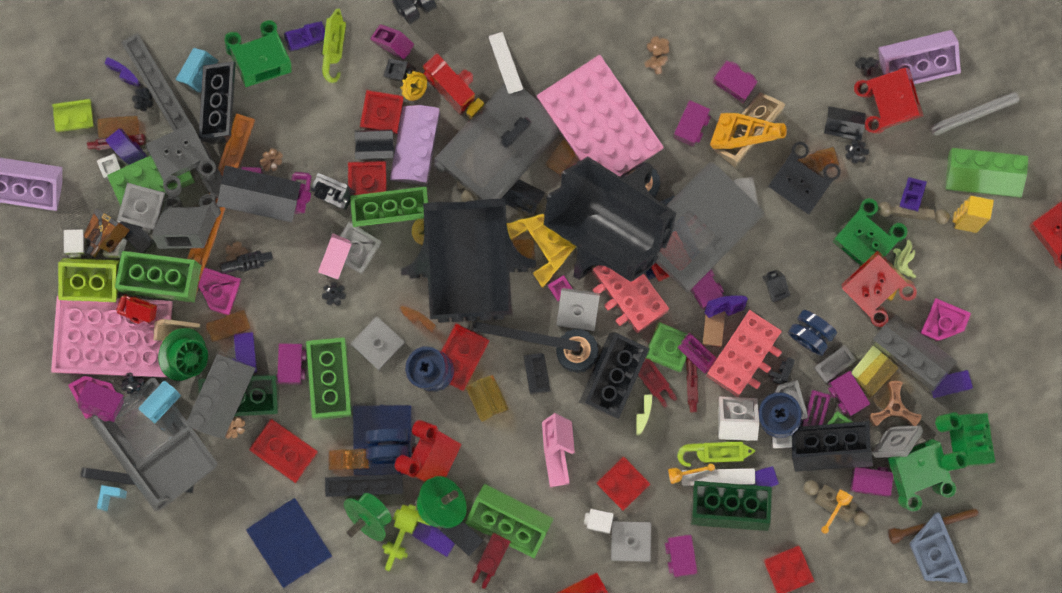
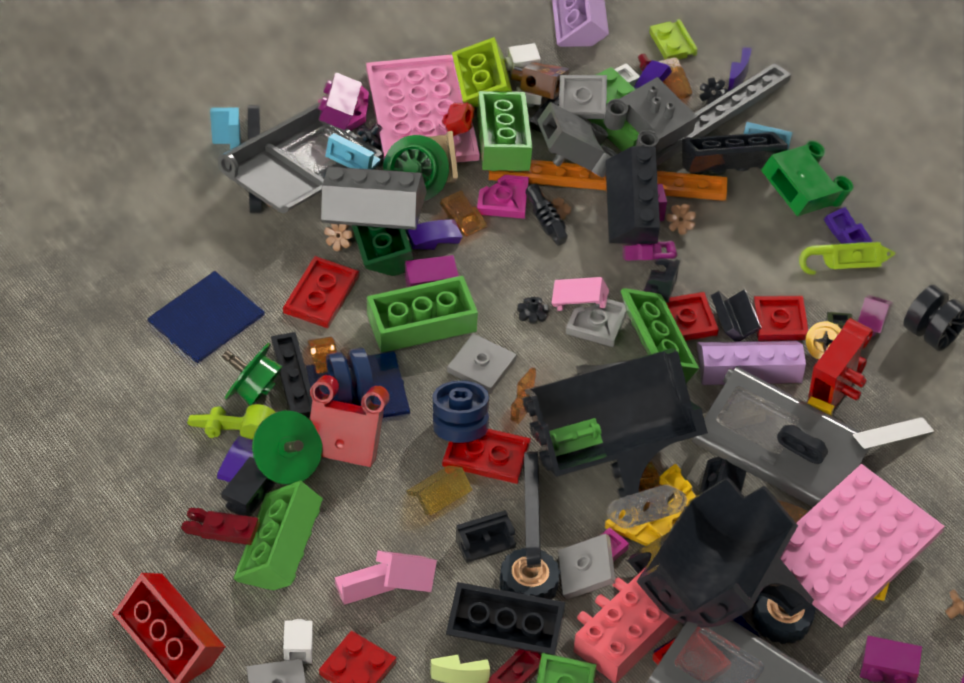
camera: 75 degrees right, 30 degrees down
(474, 292) = (576, 437): none -> bright green hinge
(543, 256) = (658, 507): none -> clear beam

